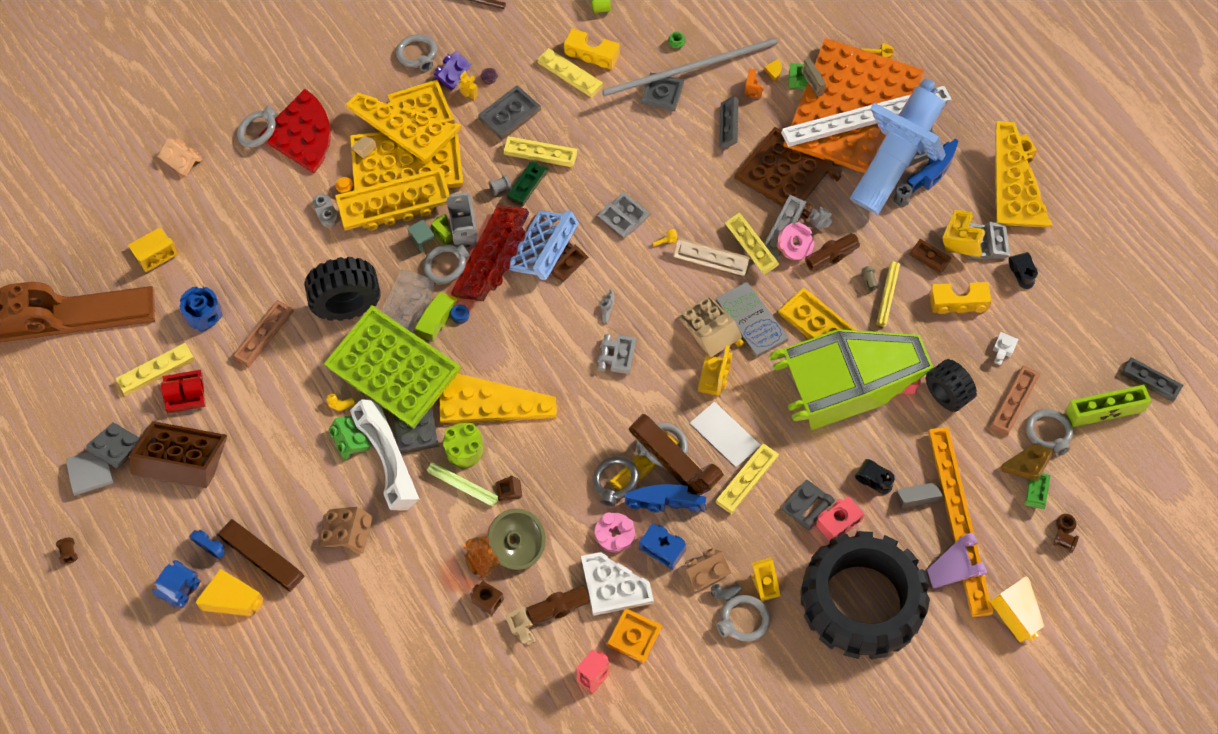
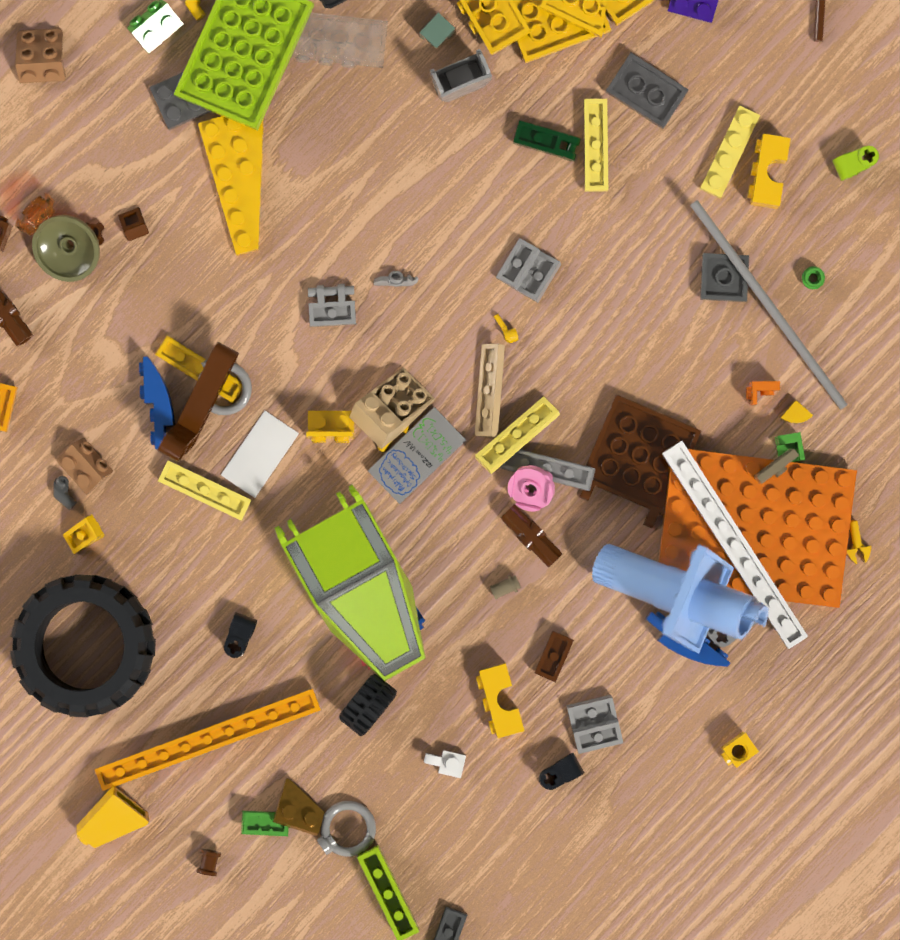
camera: 75 degrees right, 25 degrees up
(398, 485) = (100, 100): white arch -> none
(435, 316) = (332, 80): lime slope -> none
(440, 229) = (448, 56): lime bracket -> none
(459, 314) = (344, 107): blue tile -> none
(461, 254) = (422, 86): light grey piece -> none
(462, 484) = (126, 170): yellowish green axle -> none
(463, 445) = (169, 158): lime brick -> none
(467, 86) = (668, 29): yellow plate -> none
(489, 79) = (693, 50): plate -> none
(492, 254) = (430, 124): clear red plate -> none
(499, 185) = (534, 107): light grey bush -> none
(552, 247) = (456, 195): light blue fence -> none
(568, 262) = (448, 209): reddish brown slope -> none
(608, 496) = (145, 340): flat silver piece -> none
(610, 522) = (116, 346): bright pink plate -> none
(613, 585) = (42, 367): white plate -> none
(668, 554) = (96, 400): blue brick -> none
(727, 627) = (23, 500): light grey piece -> none
(728, 122) = (695, 371): dark grey plate -> none
(803, 500) = (193, 558): dark grey plate -> none
(811, 315) = (432, 535): yellow tile -> none
(820, 218) = (575, 513): light grey gear -> none
(847, 510) = (162, 601): coral brick -> none
(888, 294) = (491, 613): light yellow axle -> none
(905, 195) = (639, 615): dark grey bush -> none
(919, 495) = (230, 689): light grey slope -> none
(955, 564) = (149, 741): lavender flag -> none
(960, 237) = (585, 684): yellow panel -> none
(1015, 400) = (379, 784): nougat tile -> none
(1016, 188) = (670, 750): yellow wing -> none
(1068, 519) = (225, 864): reddish brown plate -> none

